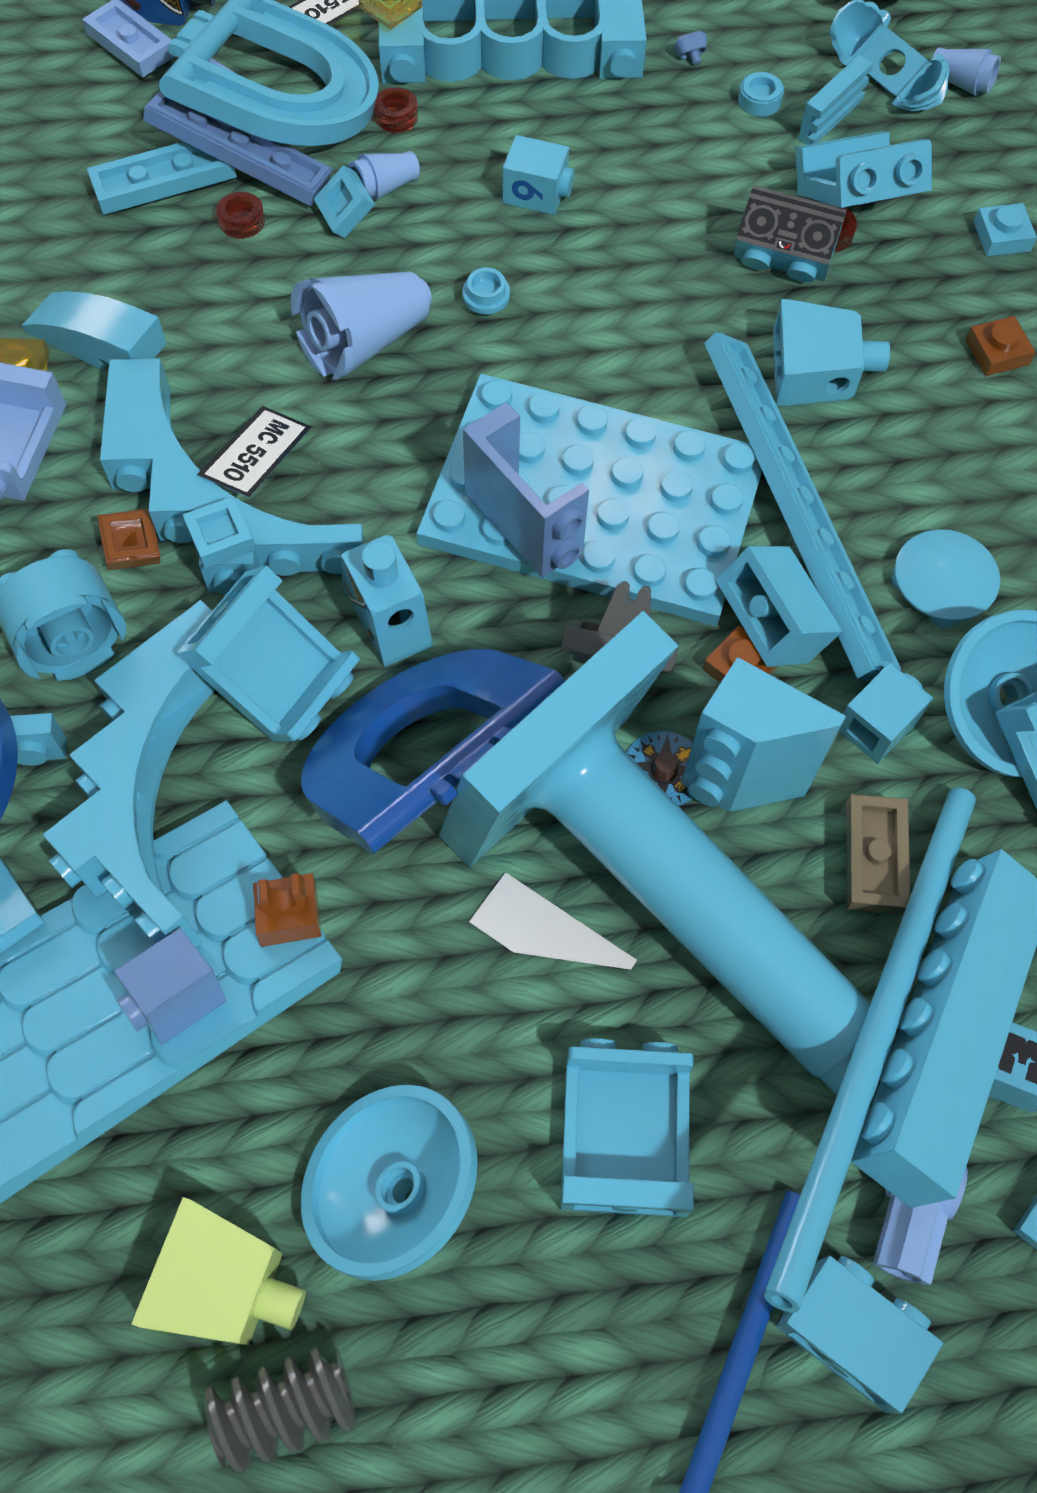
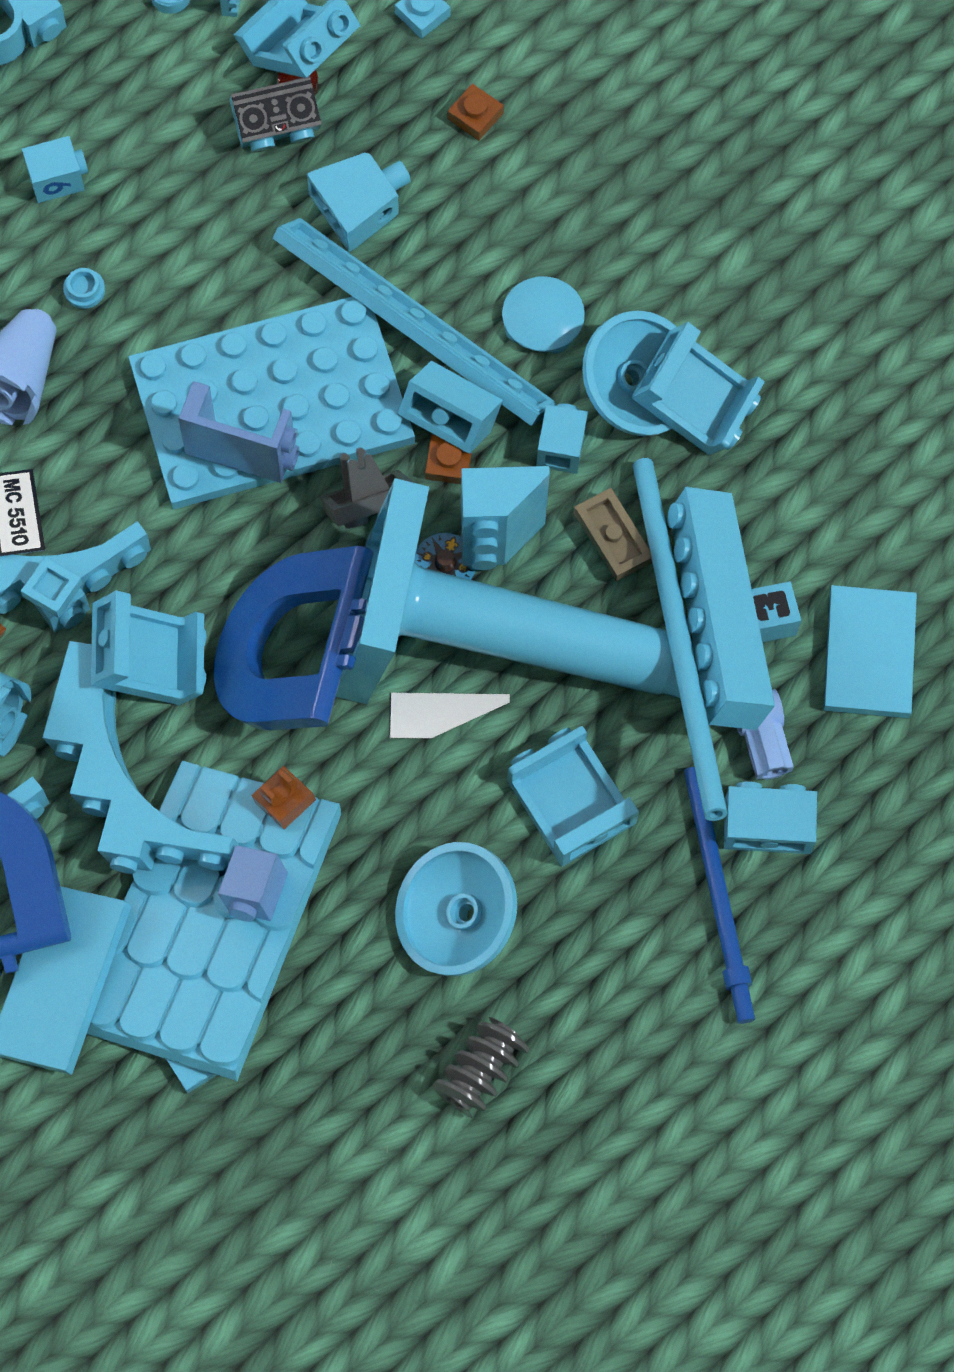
camera: 35 degrees left, 5 degrees up
(215, 1281) = (396, 1029): yellowish green torso -> none
(378, 587) = (185, 562): medium azure torso -> none

